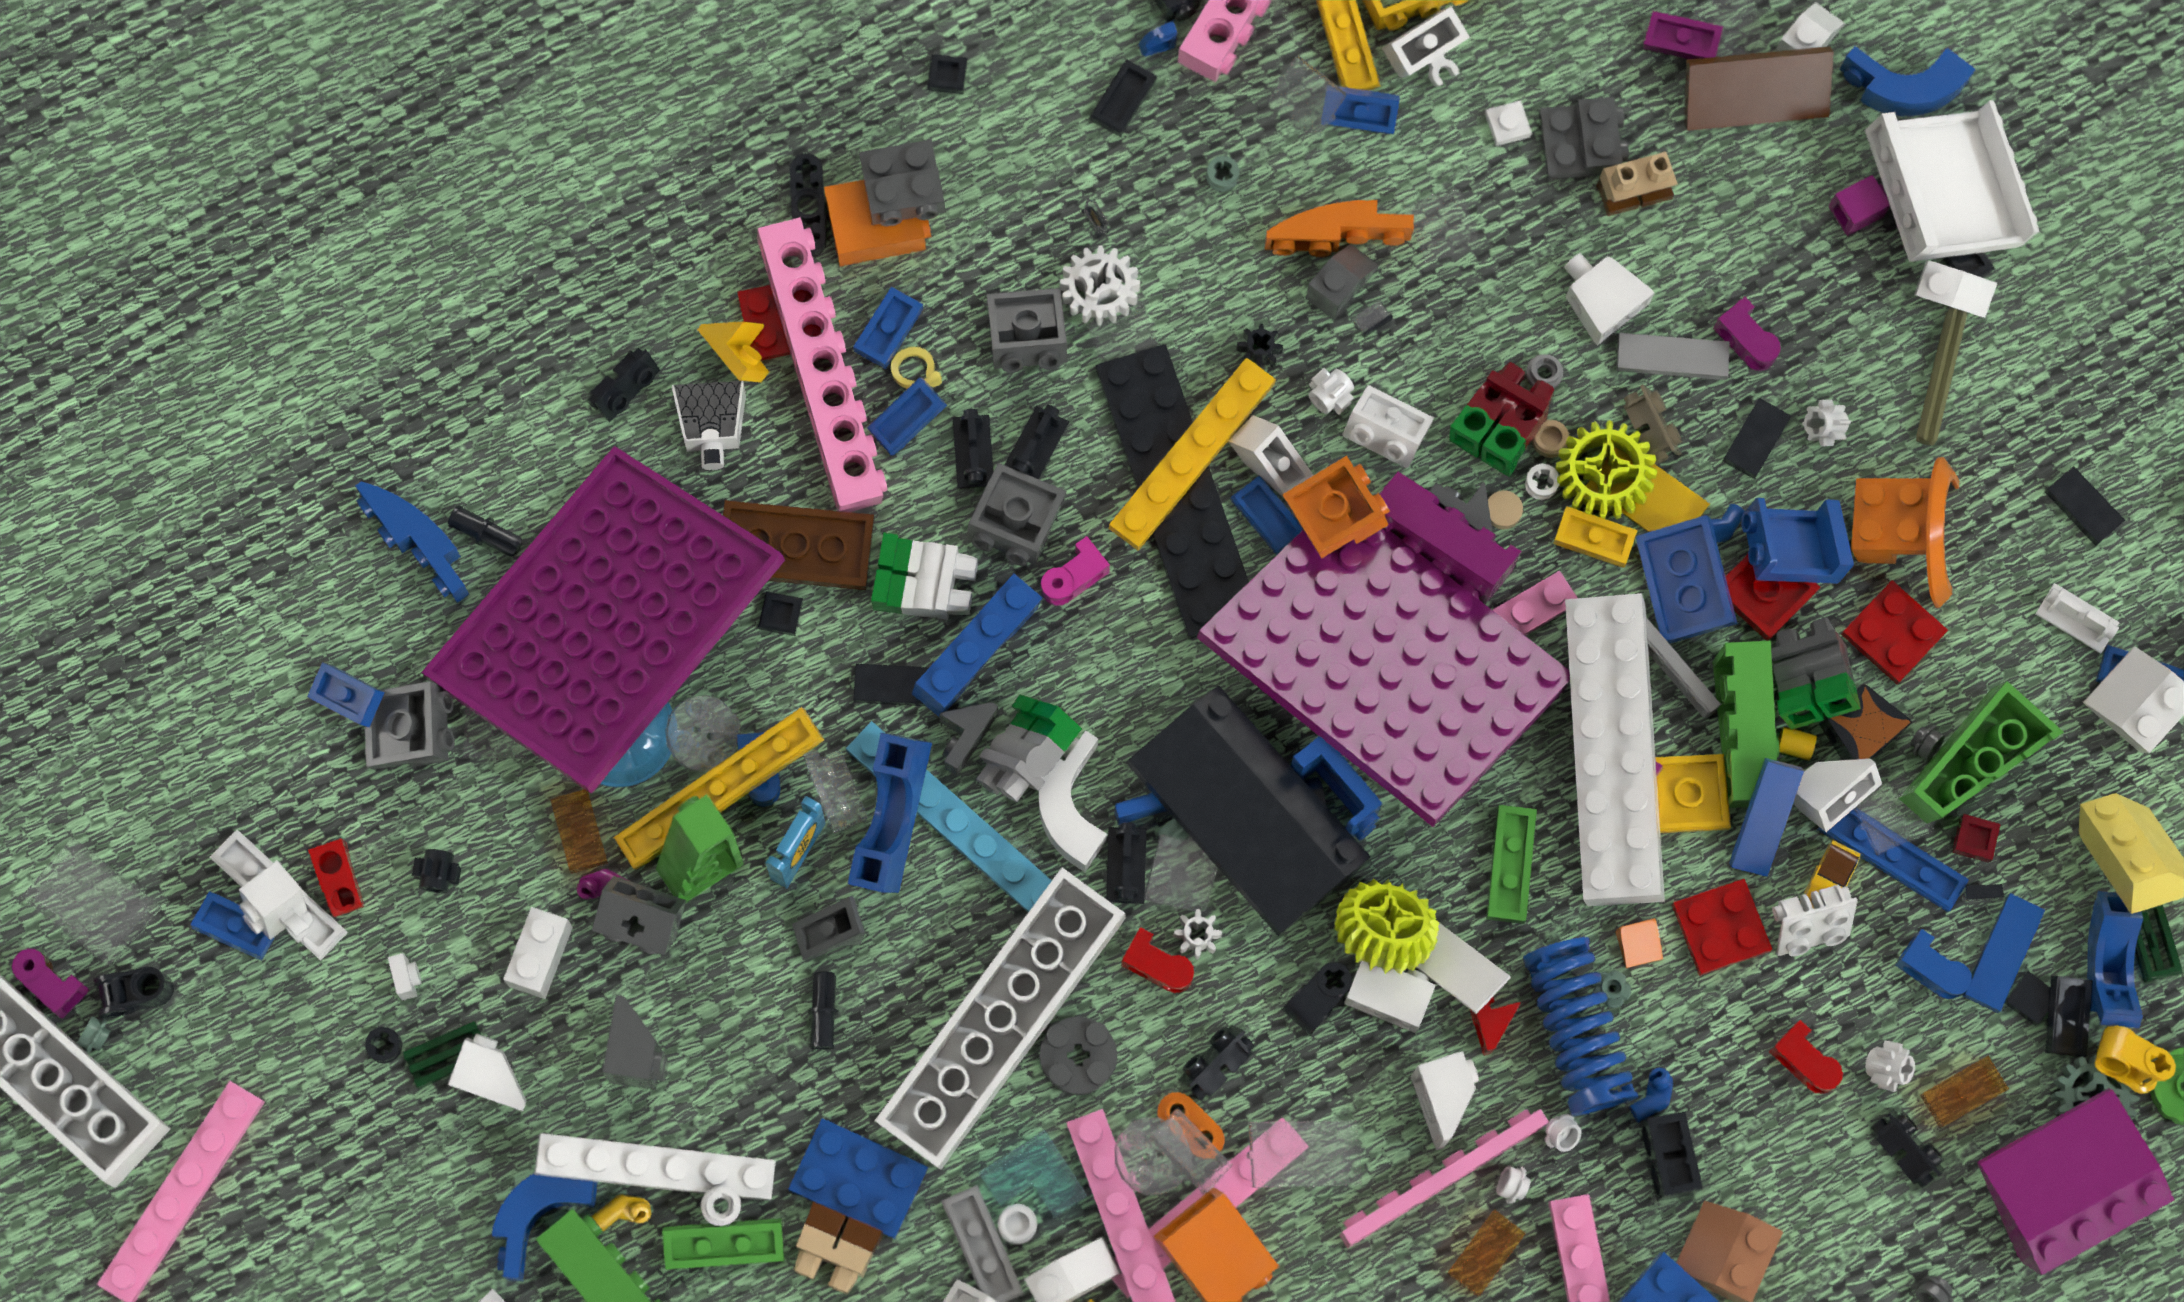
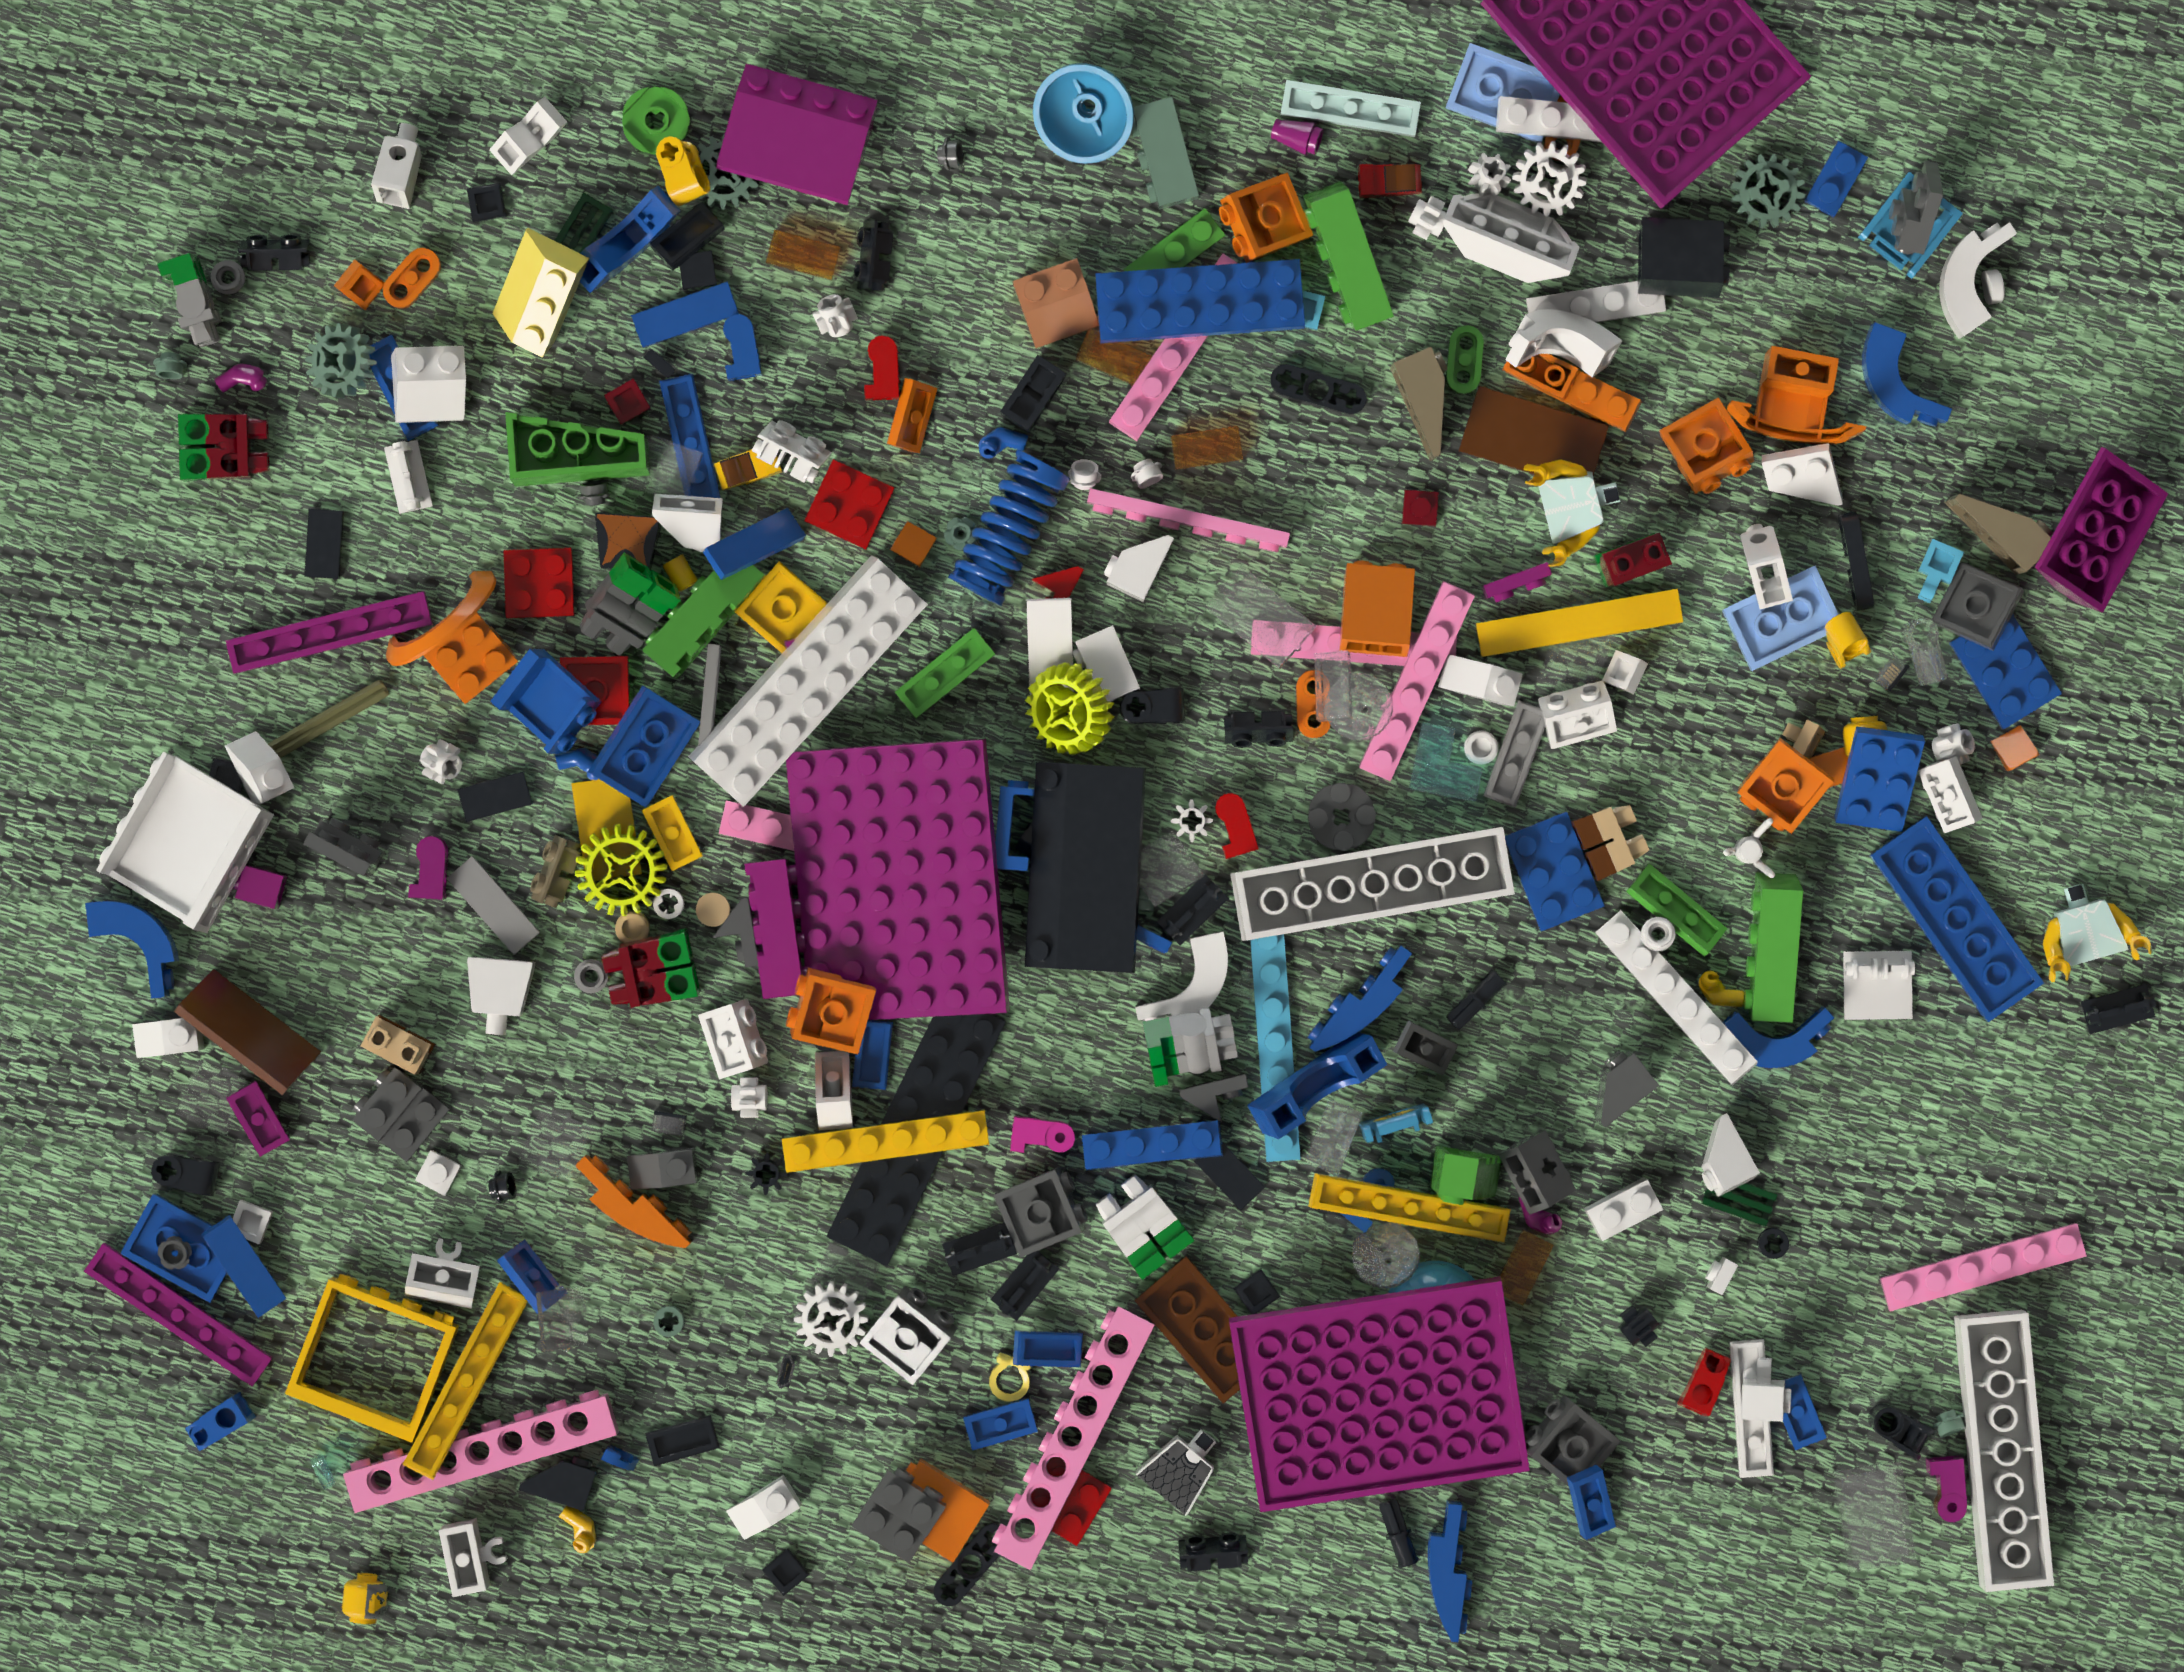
camera: 130 degrees left, 15 degrees up
(732, 345) = (1119, 1507): yellow slope -> none
(915, 904) = (1354, 1014): none -> blue slope
(1010, 105) = (764, 1507): none -> white slope
(1452, 152) = (499, 1189): none -> black plate
(1636, 1251) = (1112, 358): none -> clear orange plate
(1747, 1045) = (912, 415): none -> orange plate
(1831, 286) = (345, 848): none -> dark grey plate
(2010, 442) = (329, 632): none -> magenta plate

